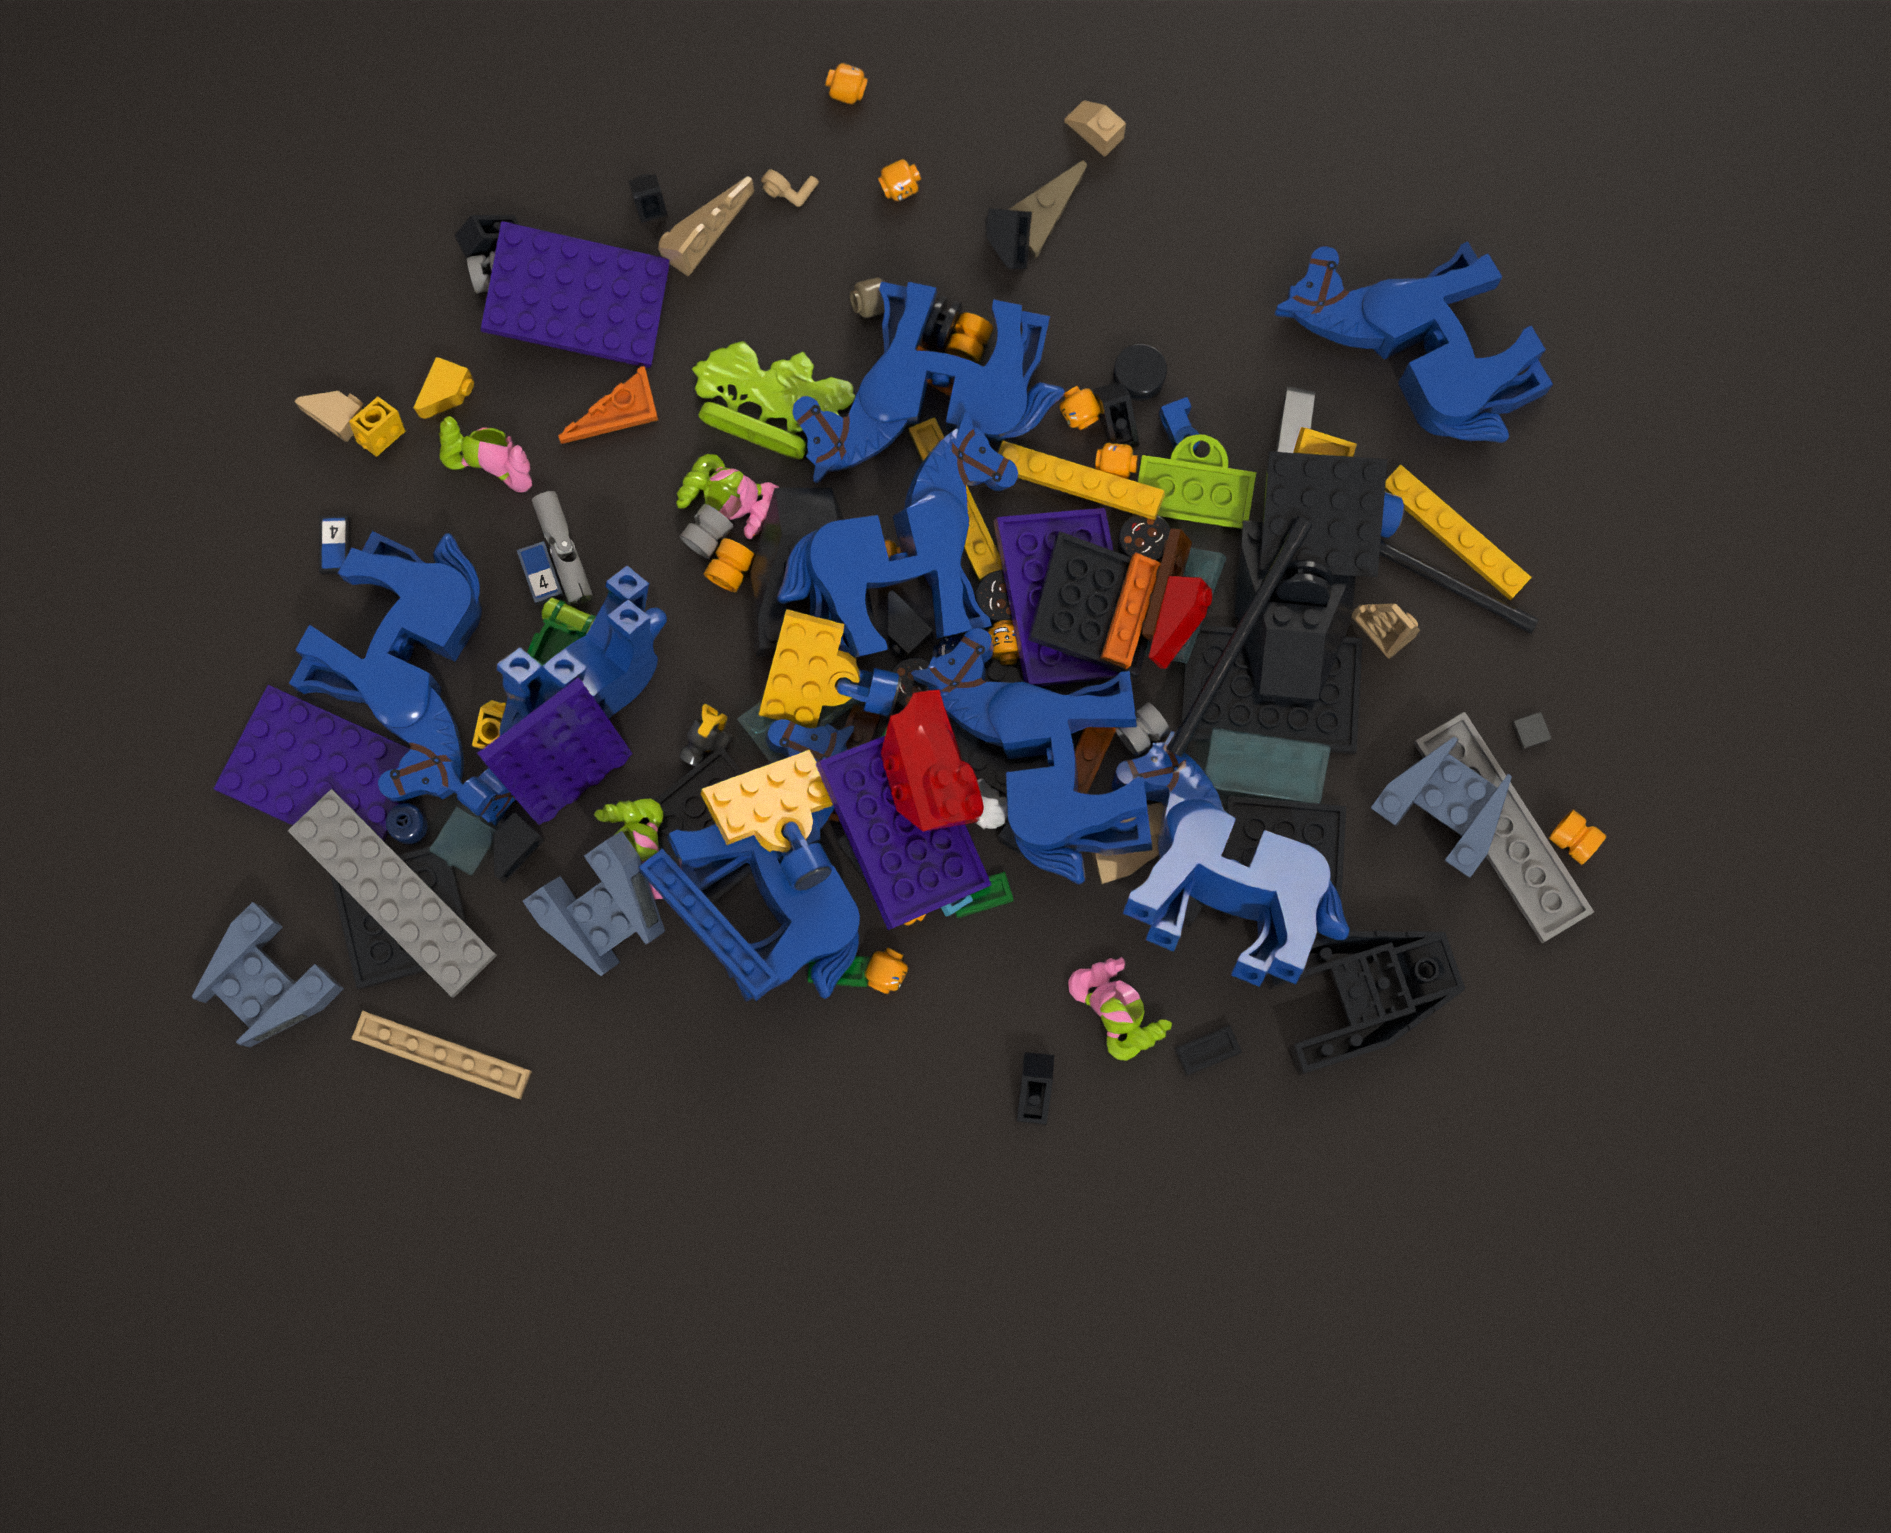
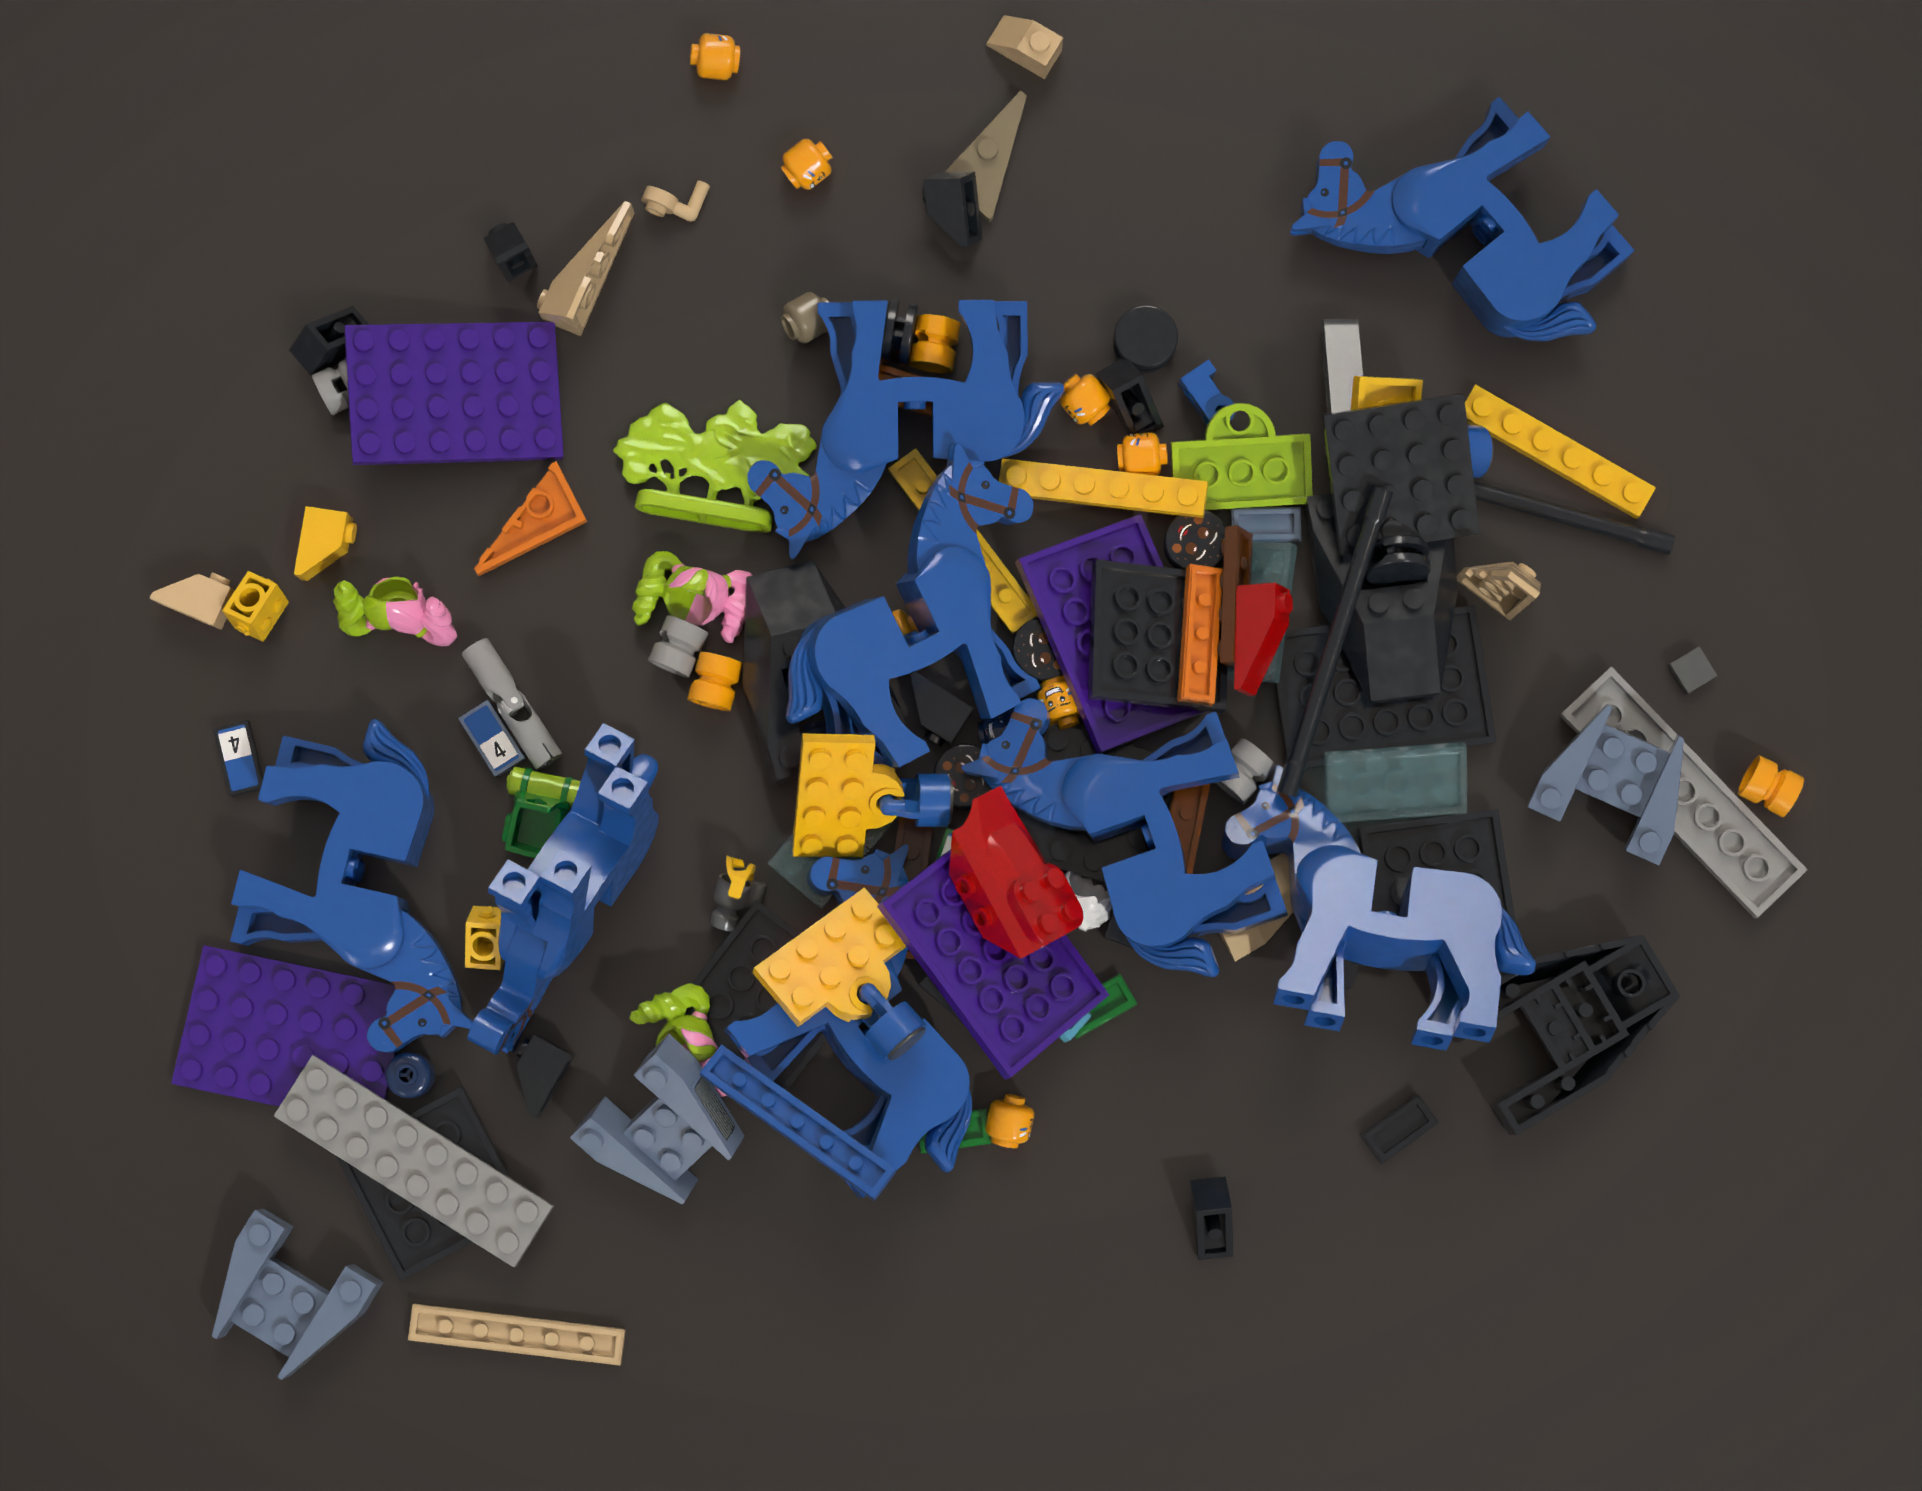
camera: 15 degrees left, 5 degrees up
(463, 841) = (481, 1080): clear light blue piece -> none
(556, 752) = (573, 962): dark purple plate -> none
(1118, 1007) = (1285, 1103): hair -> none
(1209, 537) = (1269, 523): none -> sand blue tile

